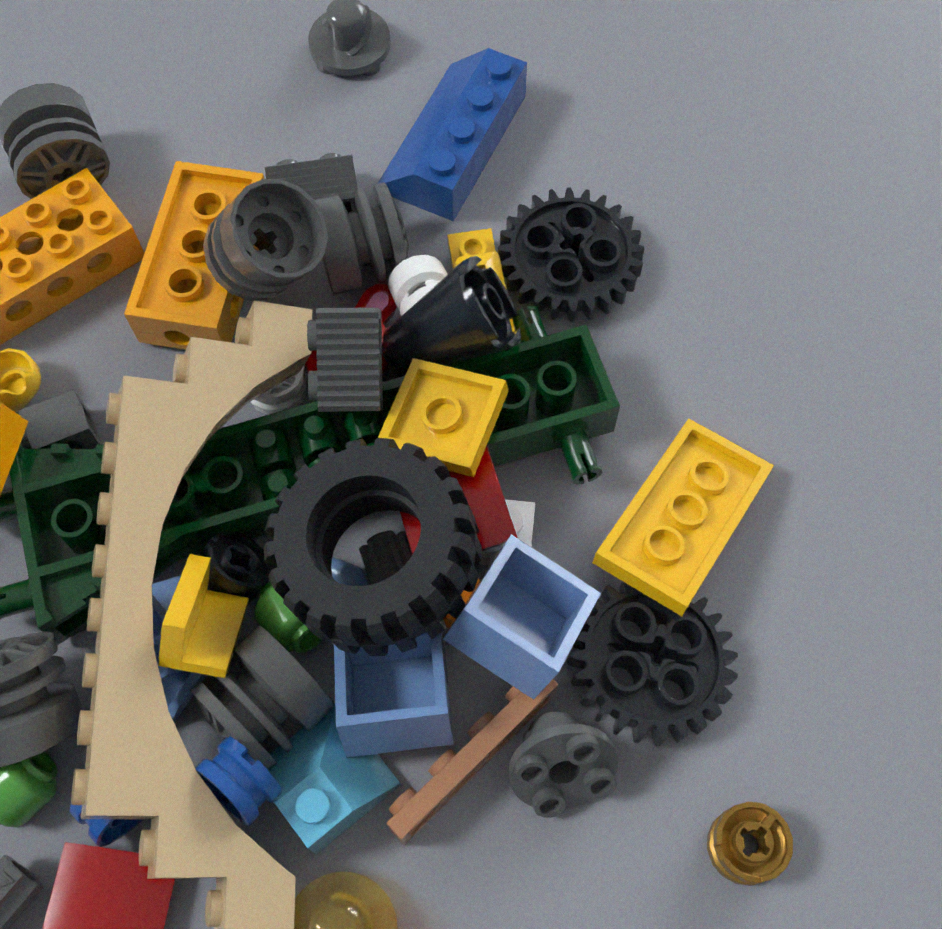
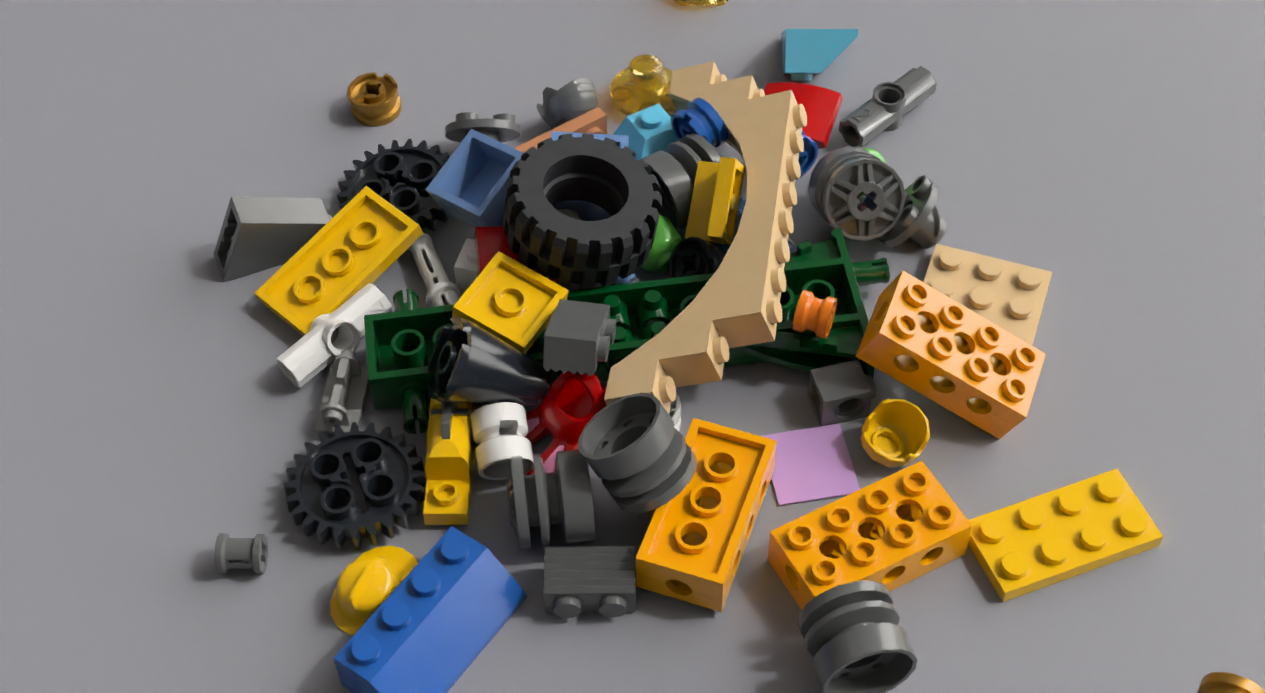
camera: 170 degrees left, 15 degrees down
(71, 454) = (814, 314): none -> orange wheel
(98, 358) = (812, 465): none -> lavender piece
(449, 851) = (567, 102): none -> dark grey hair
(518, 169) = (367, 585): none -> yellow piece
(550, 506) = (423, 254): none -> white pin
(621, 352) = (343, 394): none -> light grey hinge
(653, 418) = (315, 349): none -> white piece
(657, 173) = (241, 553): none -> dark grey bush
(785, 552) = (265, 232): none -> dark grey slope

